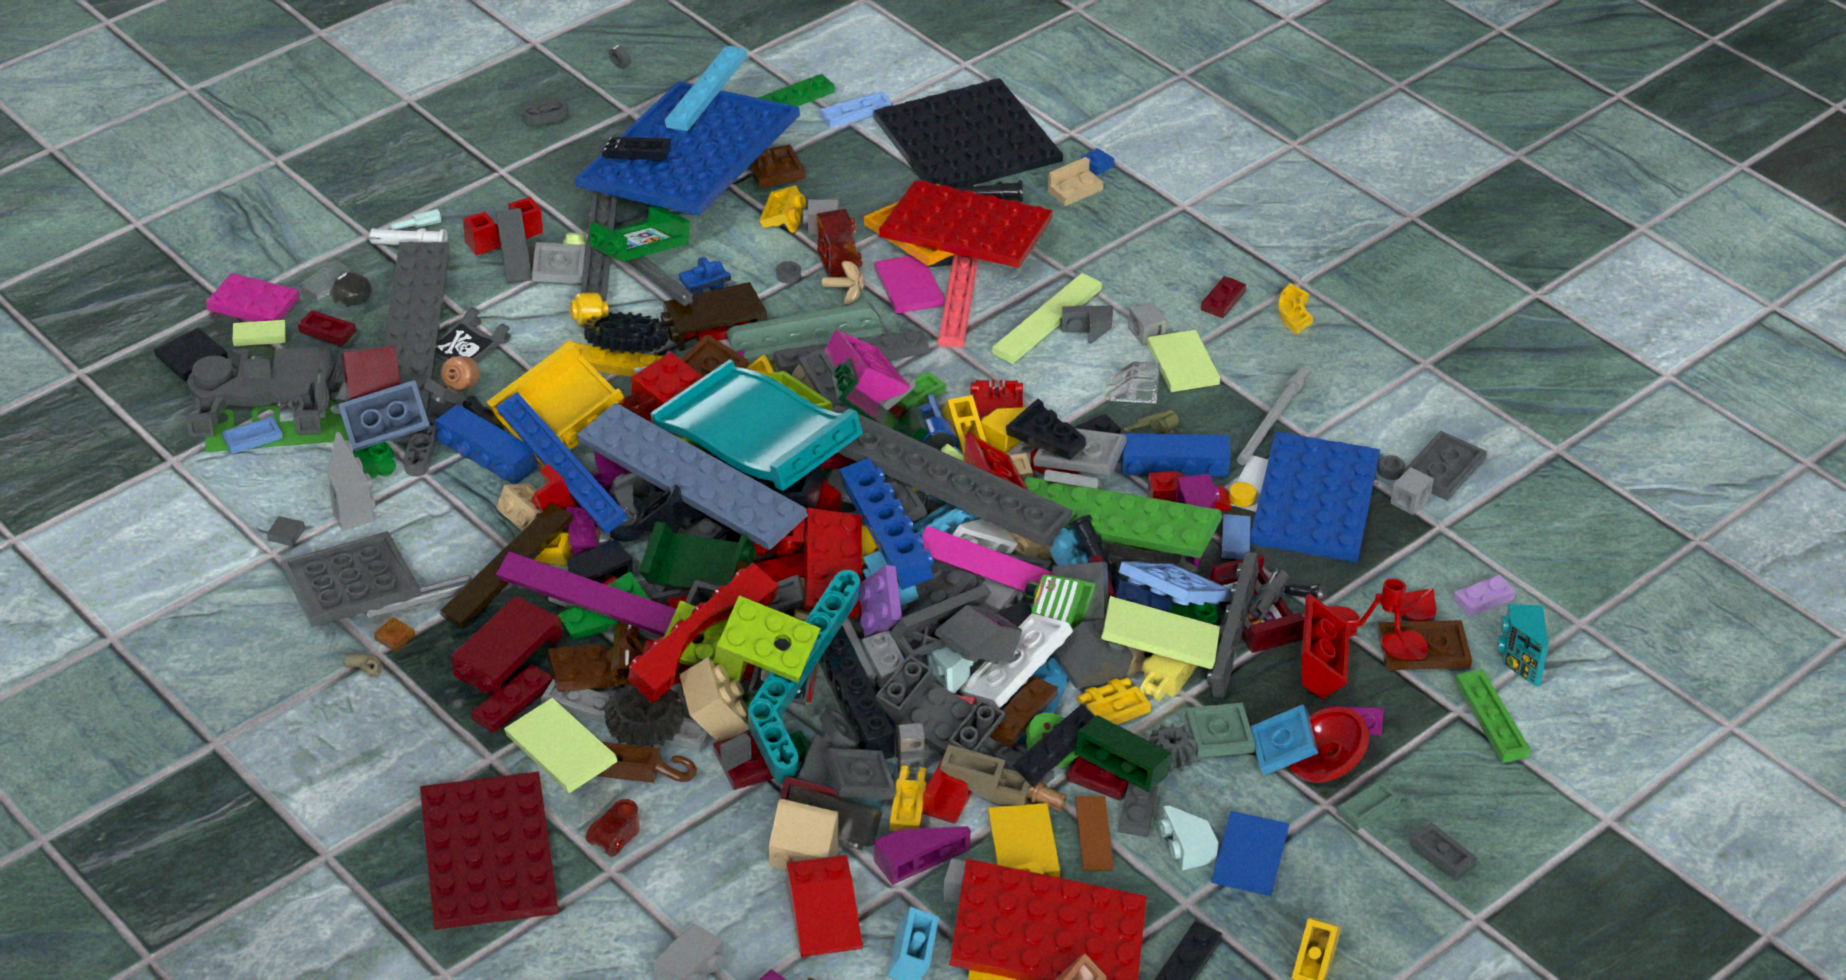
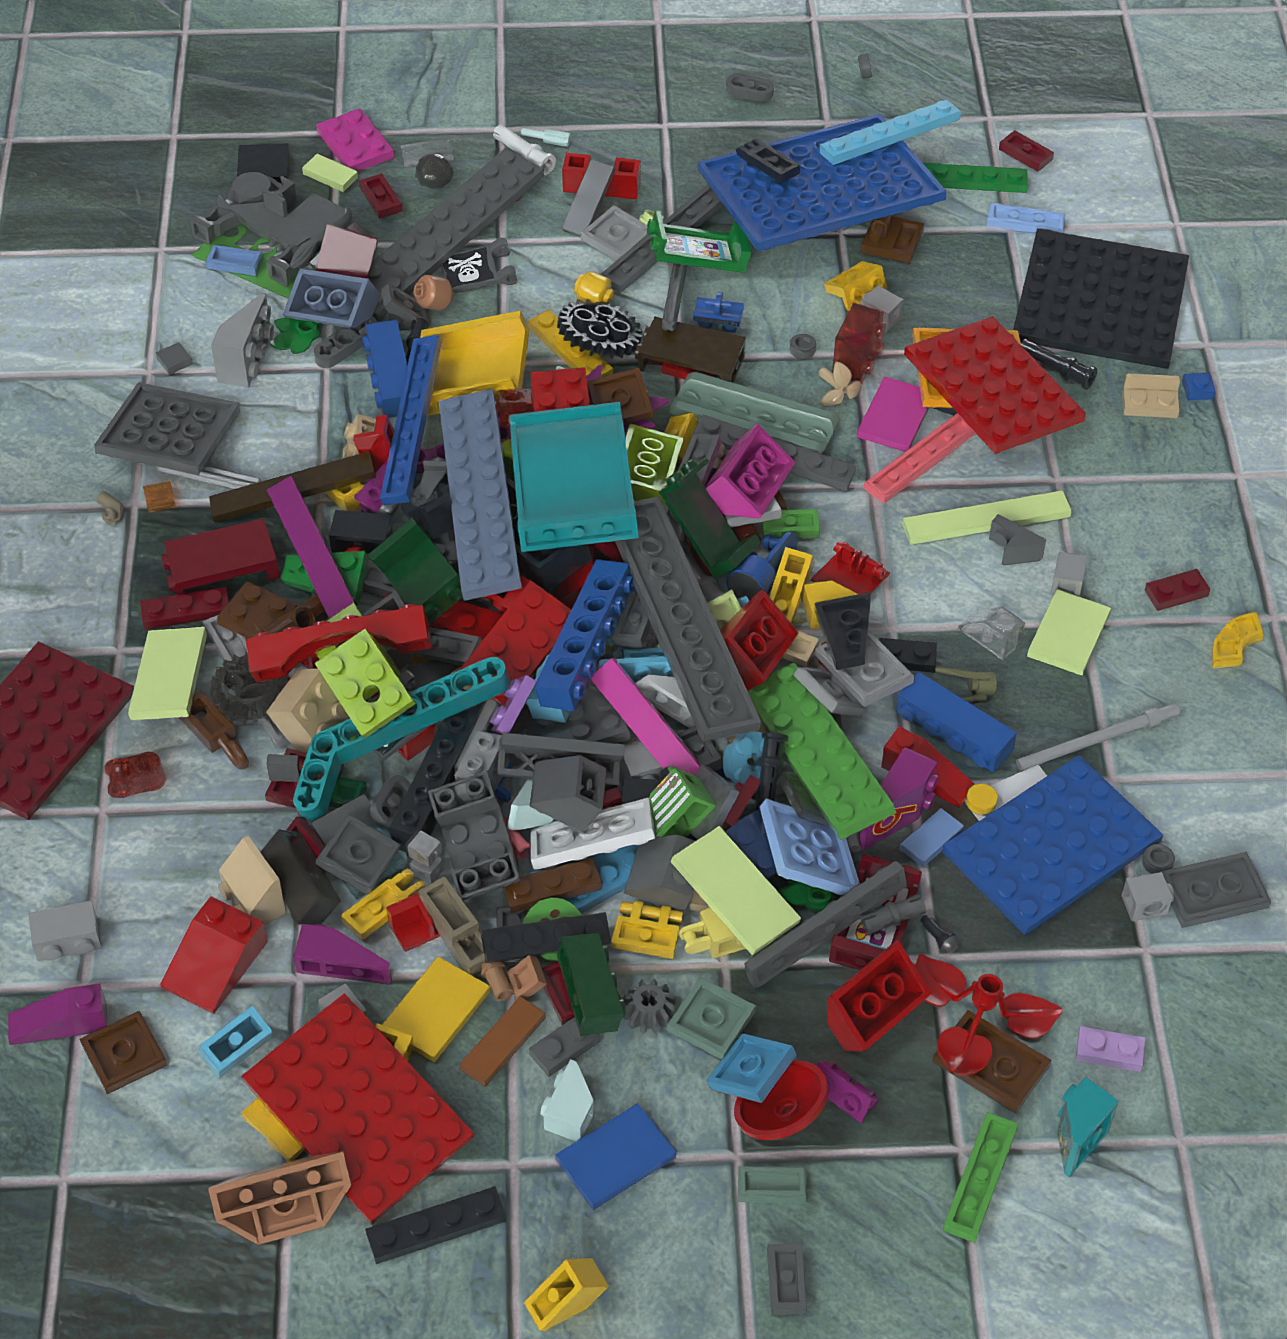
camera: 40 degrees right, 10 degrees up
(807, 61) = (1026, 150): none -> dark red plate
(1068, 780) = (526, 977): none -> nougat plate

